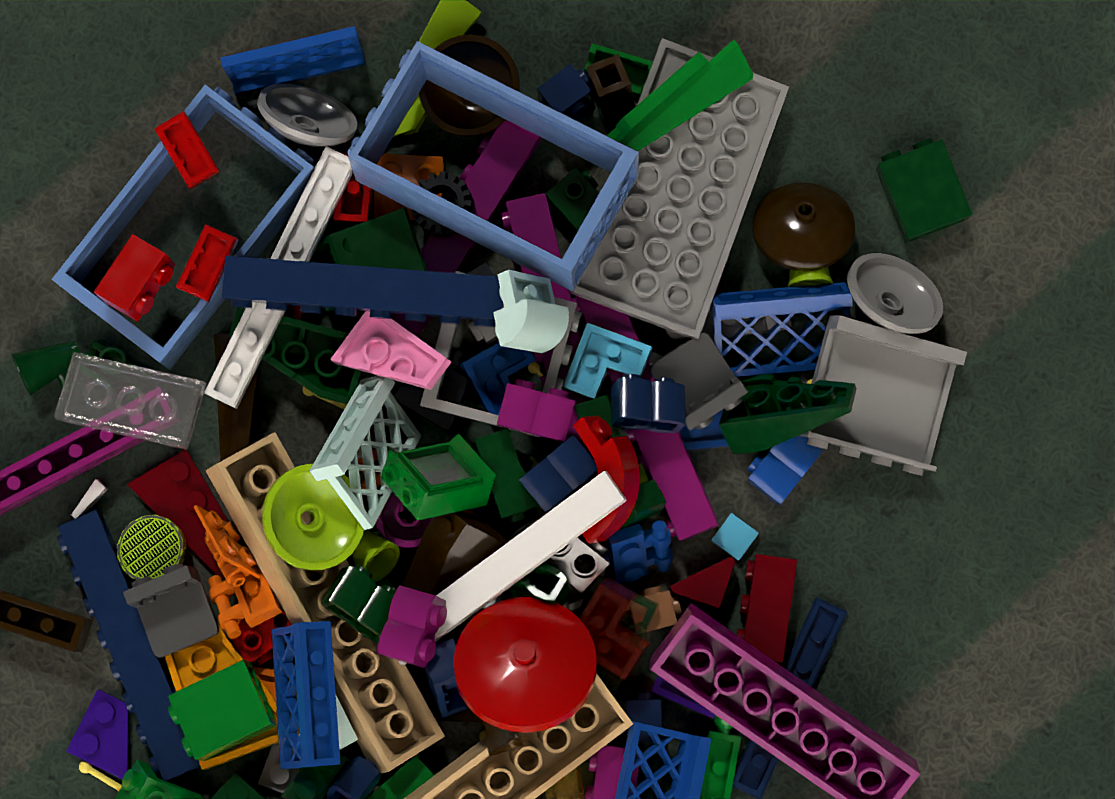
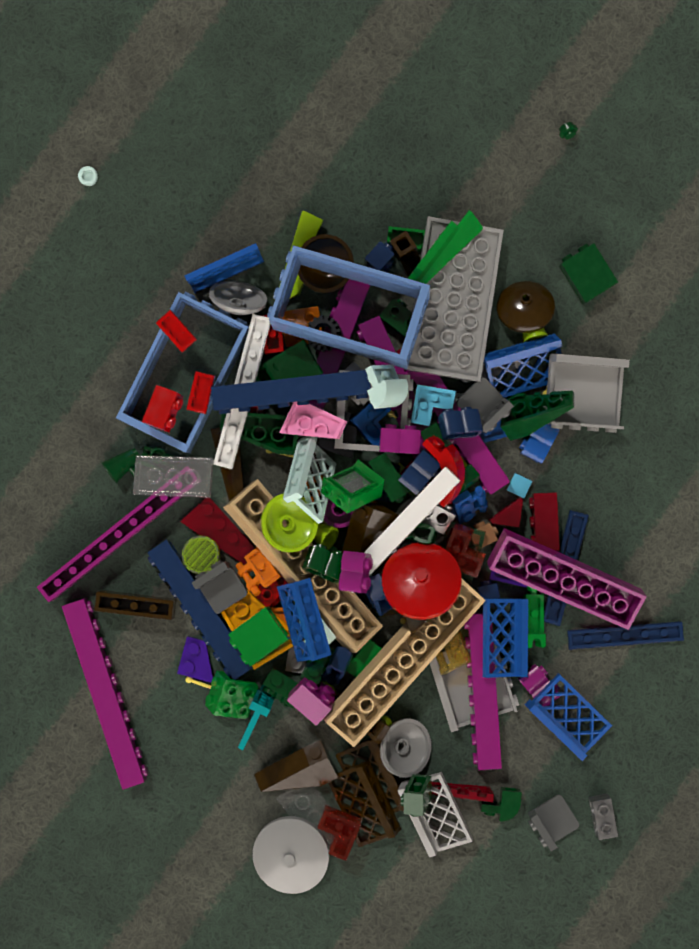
camera: 15 degrees left, 5 degrees up
(93, 494) = (163, 528): white piece -> none
(227, 548) = (243, 547): orange hinge -> none
(894, 293) = (583, 334): light grey dish -> none

